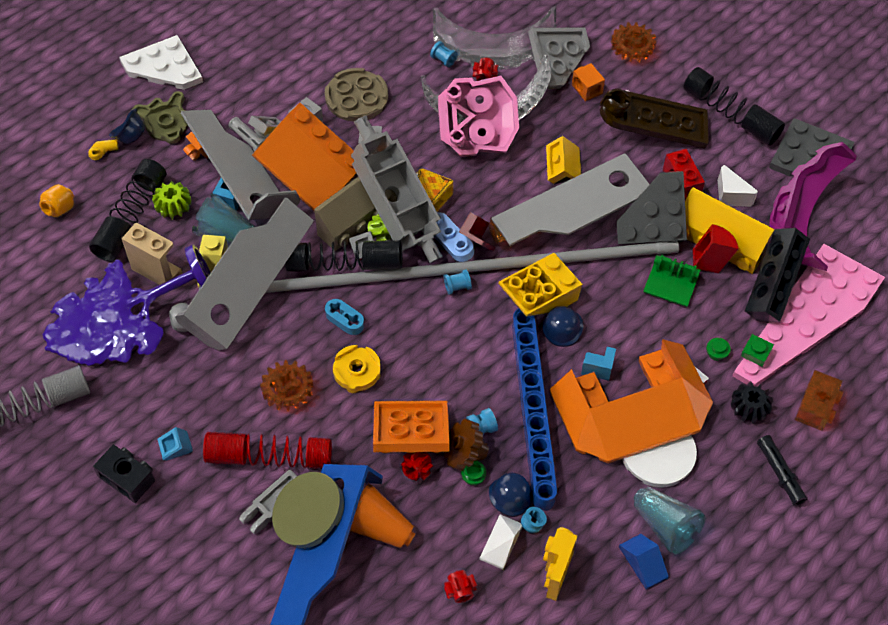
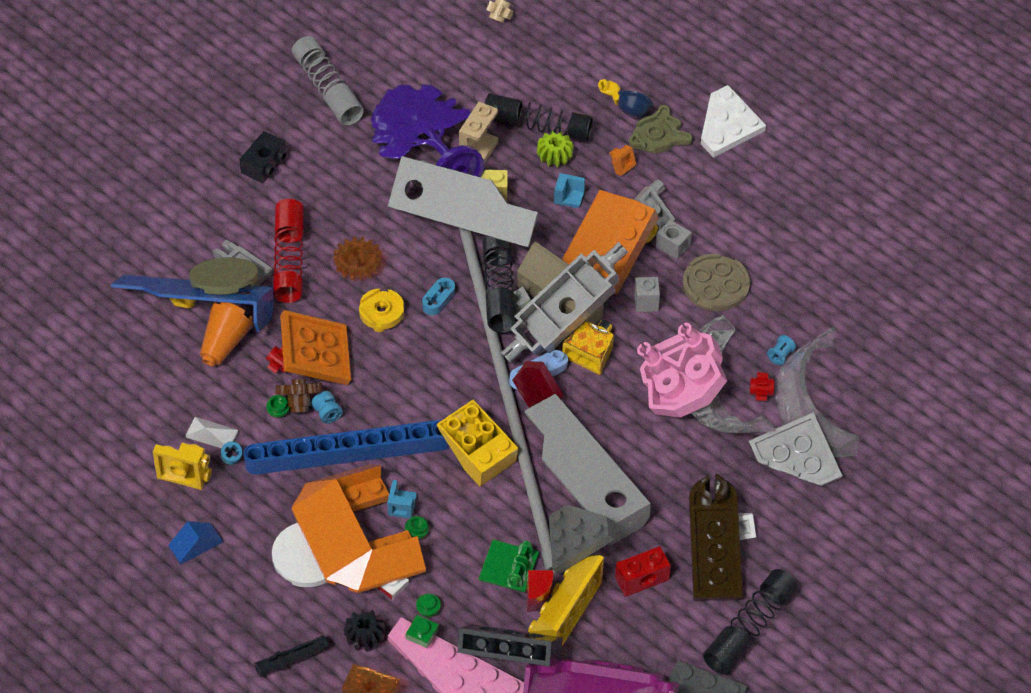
camera: 85 degrees right, 5 degrees down
(56, 200) = (542, 66): light orange head -> none
(174, 444) = (297, 189): dark azure slope -> none
(219, 219) = (529, 182): clear light blue cone -> none
(237, 166) = (618, 175): light grey piece -> none
(457, 282) = (485, 380): dark azure bush -> none
(460, 586) = (163, 399): red gear -> none
(511, 494) = (256, 431): dark blue helmet -> none
(562, 160) = (651, 466): yellow panel -> none
(562, 326) = (443, 470): dark blue helmet -> none
(588, 82) = (764, 482): orange brick -> none
(630, 352) = (417, 527): none -> green plate
(633, 42) = (832, 525): clear orange gear -> none
(669, 518) = (229, 554): clear light blue cone -> none
(734, 190) = (634, 618): white slope -> none

